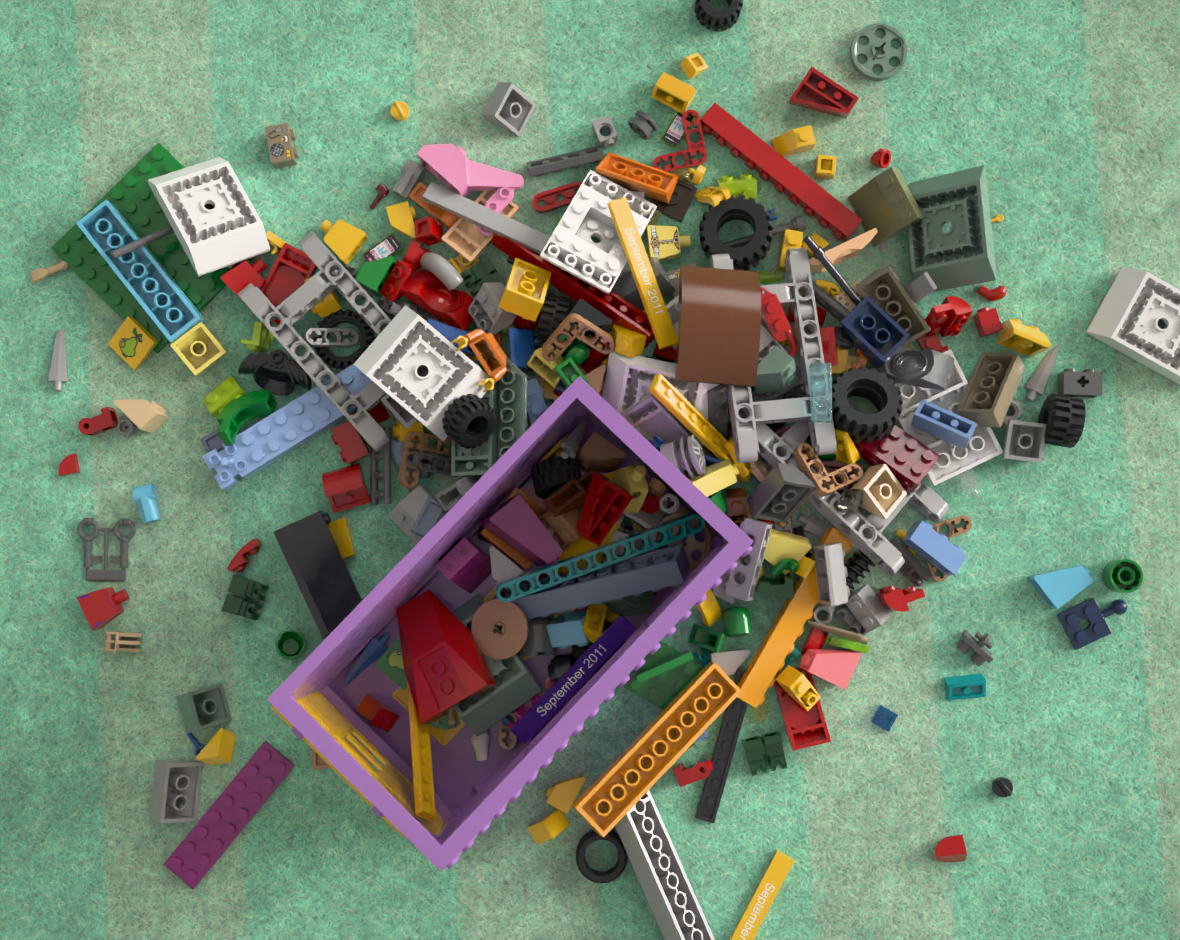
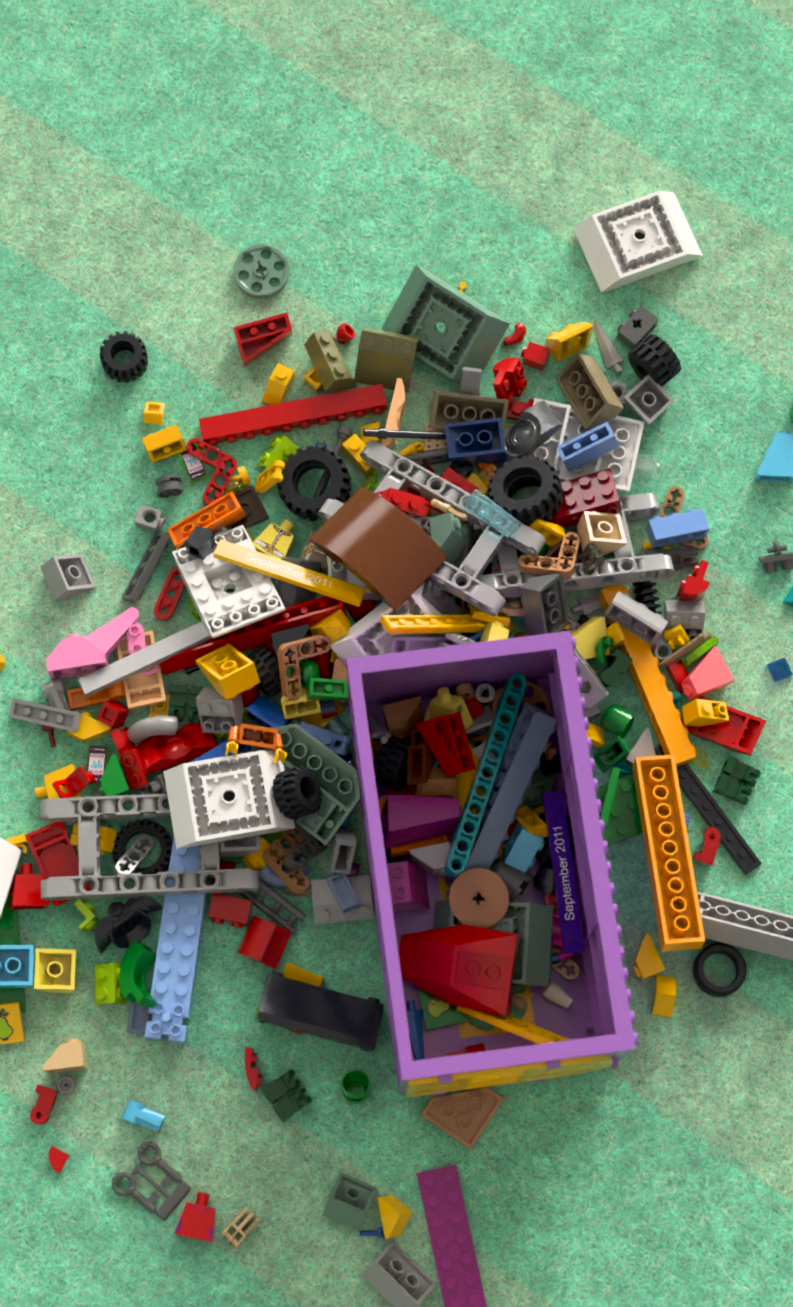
camera: 55 degrees left, 10 degrees down
(349, 246) = (74, 783): none -> red bracket
(386, 181) = (45, 715): none -> light grey plate
(612, 184) = (200, 542): none -> black brick
(654, 599) = (549, 762): none -> black piece
(796, 353) = (447, 508): none -> tan piece
(843, 616) = (676, 636): none -> yellow tile
(846, 165) = (329, 362): none -> olive slope

